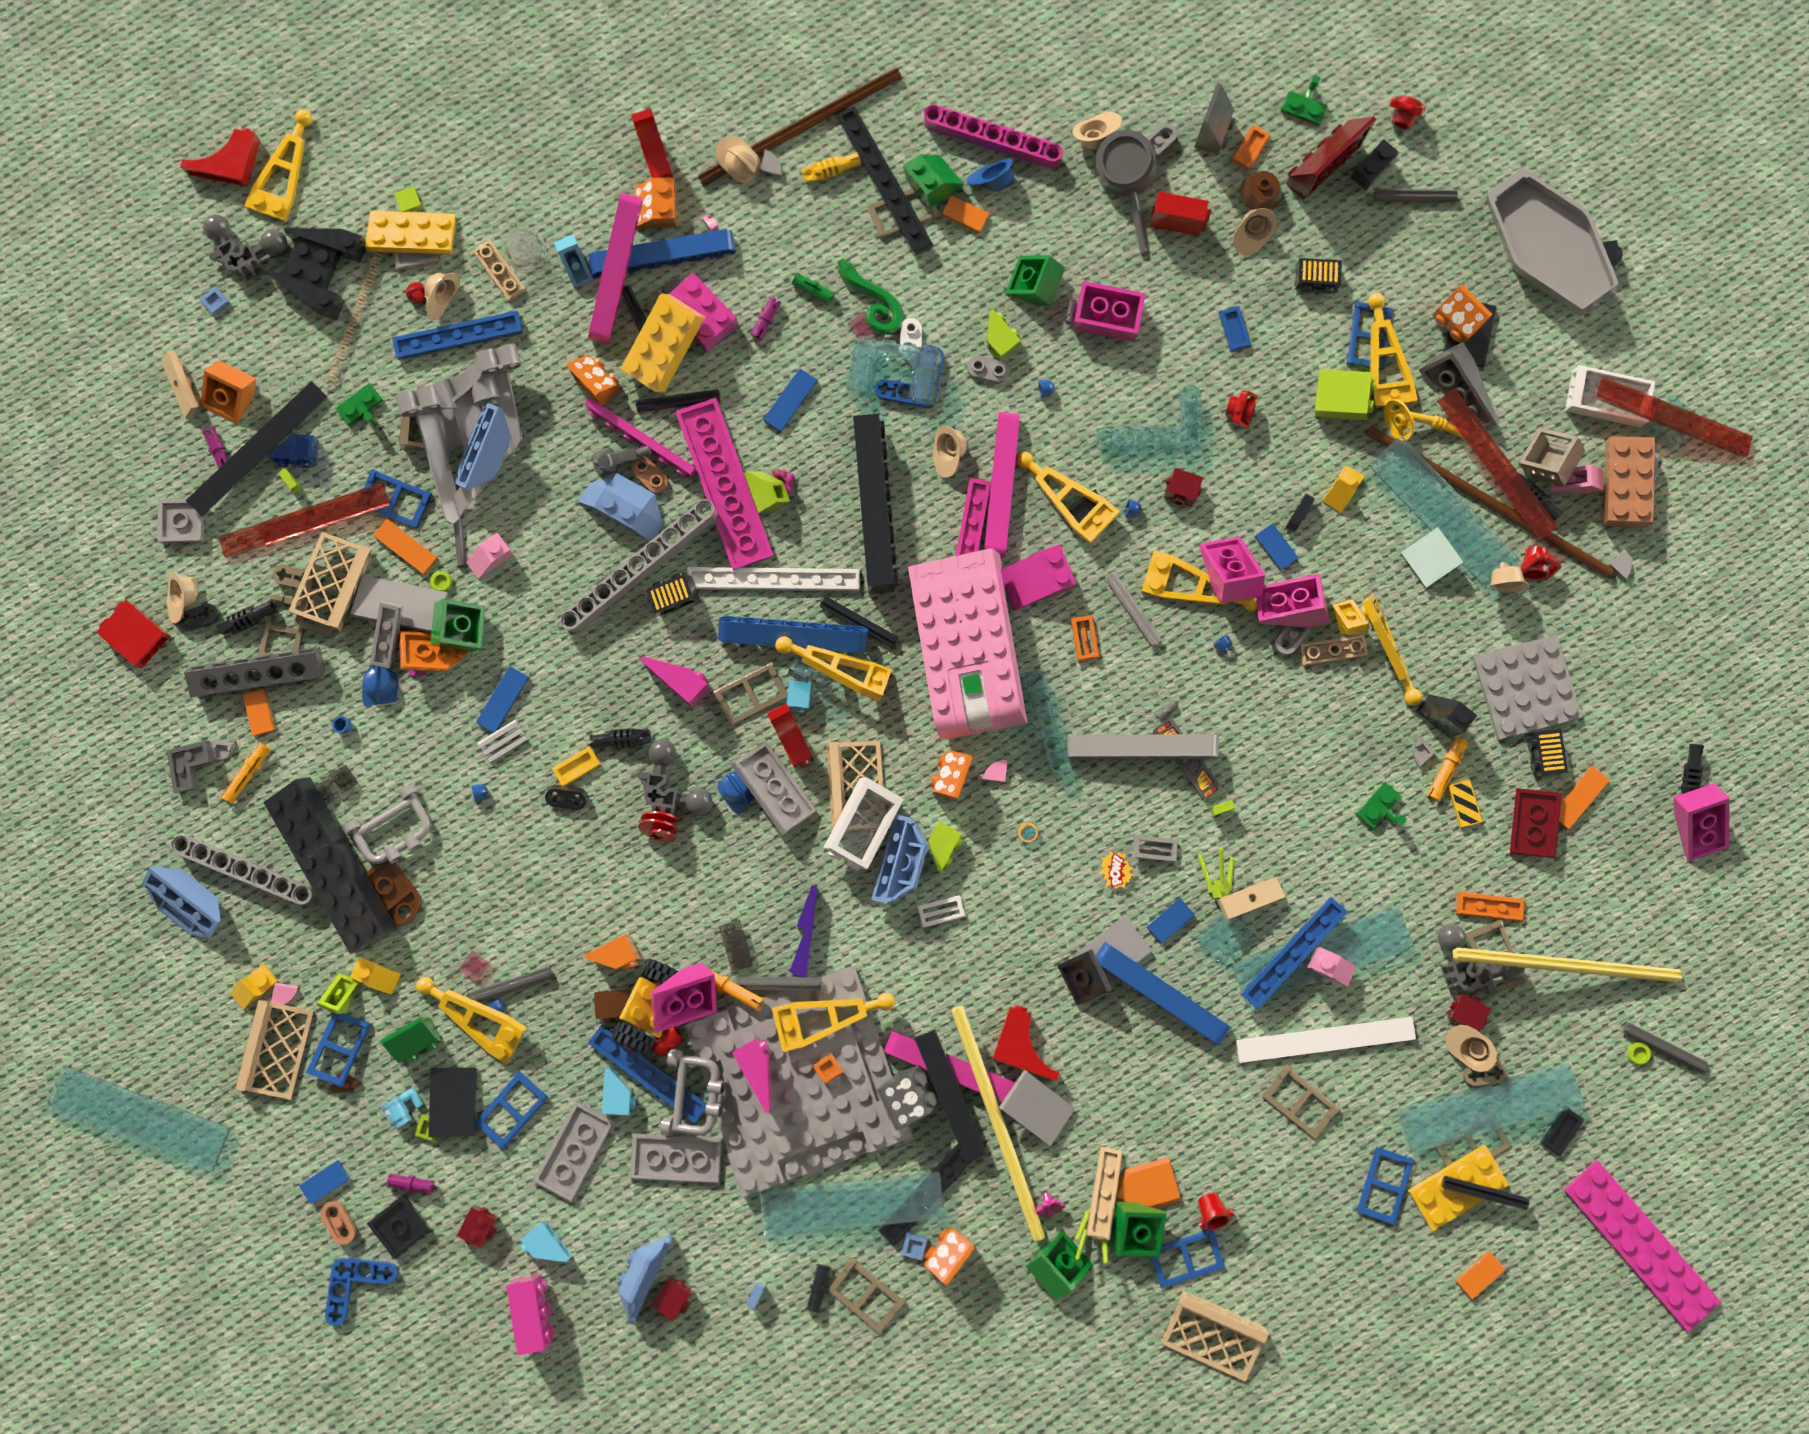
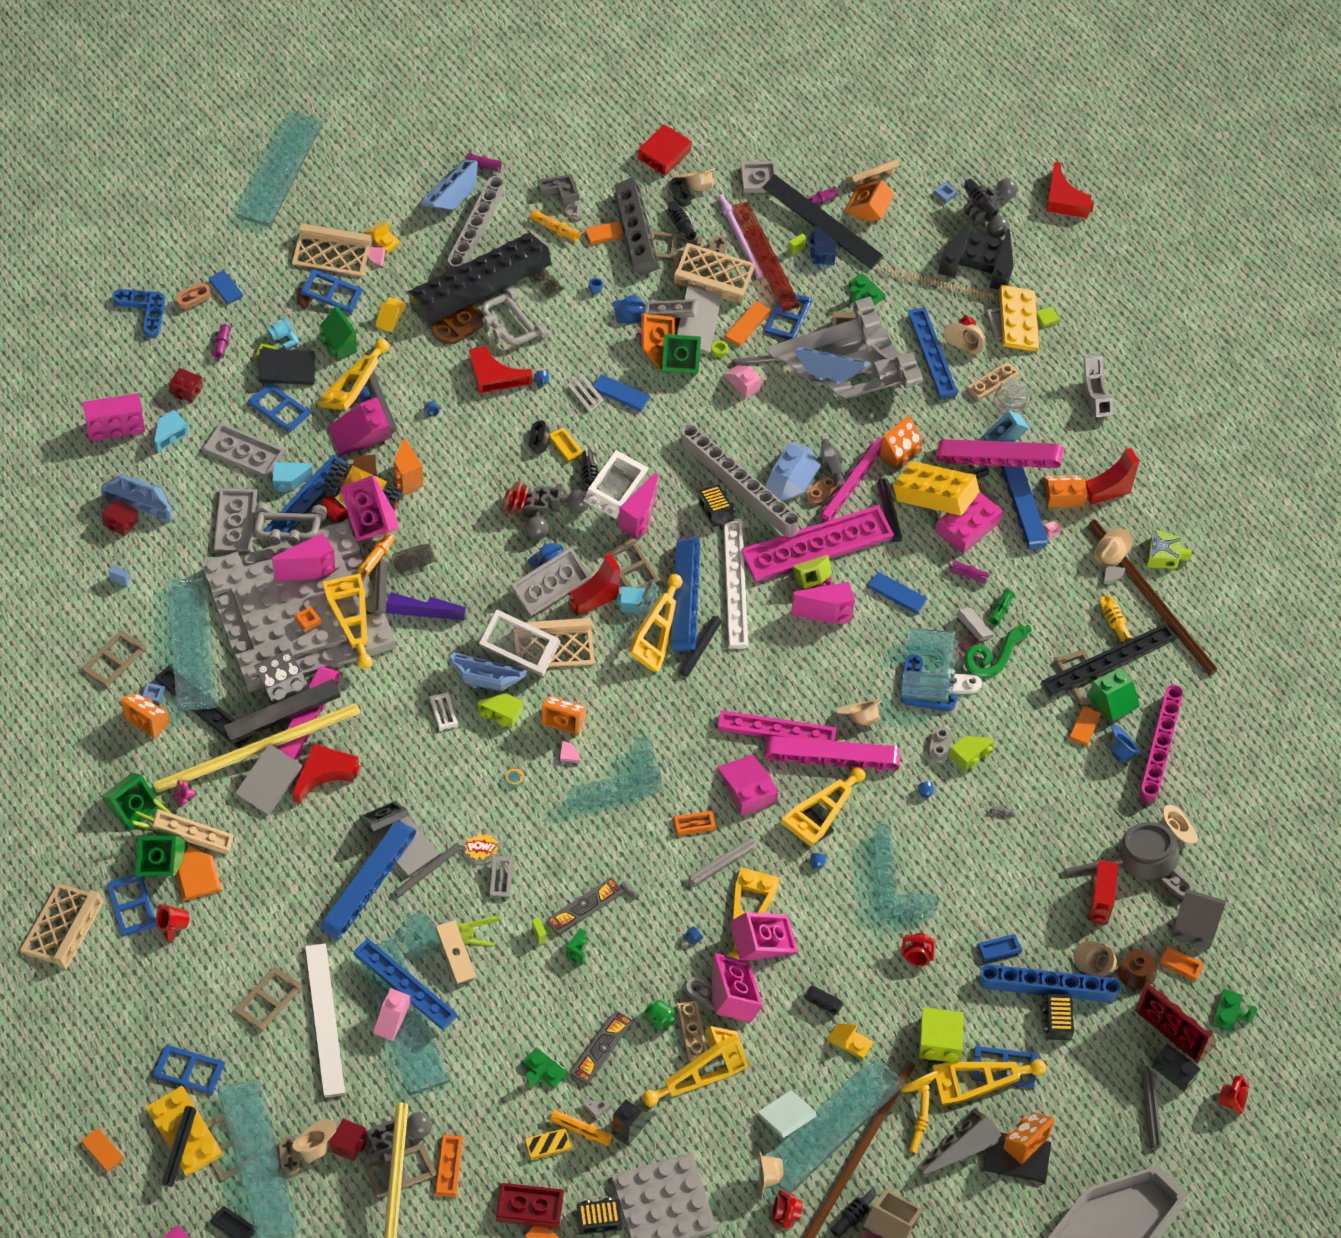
camera: 85 degrees right, 25 degrees down
(140, 860) = (484, 162): none -> magenta pin
(231, 562) = (728, 212): none -> lavender bar
(237, 257) = (980, 198): none -> black hinge
(269, 203) = (1033, 223): yellow plate -> none
(339, 994) = (373, 288): lime slope -> none
(399, 1226) = (188, 335): black plate -> none
(473, 854) = (494, 376): none -> red arch
(474, 965) = (398, 379): clear pink tile -> none
(517, 925) = (433, 407): none -> blue hinge
(518, 156) = (1094, 386): none -> light grey arch
(549, 1011) = (360, 427): none -> dark pink slope
(645, 708) = (615, 484): none -> white window
(742, 103) = (1166, 550): none -> lime torso
(814, 467) = (825, 603): none -> dark pink slope
(818, 1288) = (122, 622): black pin -> none
(835, 318) = (975, 624): none -> light grey tile
(873, 499) = (805, 649): black brick -> none
(967, 644) = (681, 717): bright pink piece -> none
(1035, 279) = (1027, 780): green slope -> none
(1109, 311) = (1002, 836): dark pink brick -> none
(1143, 746) = (594, 865): light grey beam -> none
(1144, 931) = (426, 870): none -> dark grey piece
(1170, 920) = (435, 892): blue tile -> none
(1183, 487) = (839, 899): dark red head -> none
(1237, 767) = (575, 947): none -> green bracket
(1276, 547) = (789, 982): blue tile -> none
(1283, 272) = (1058, 979): none -> blue beam
(1321, 683) = (659, 1014): none -> green head
(1354, 745) = (601, 1047): none -> tile
(1497, 464) = (882, 1171): clear red tile -> none

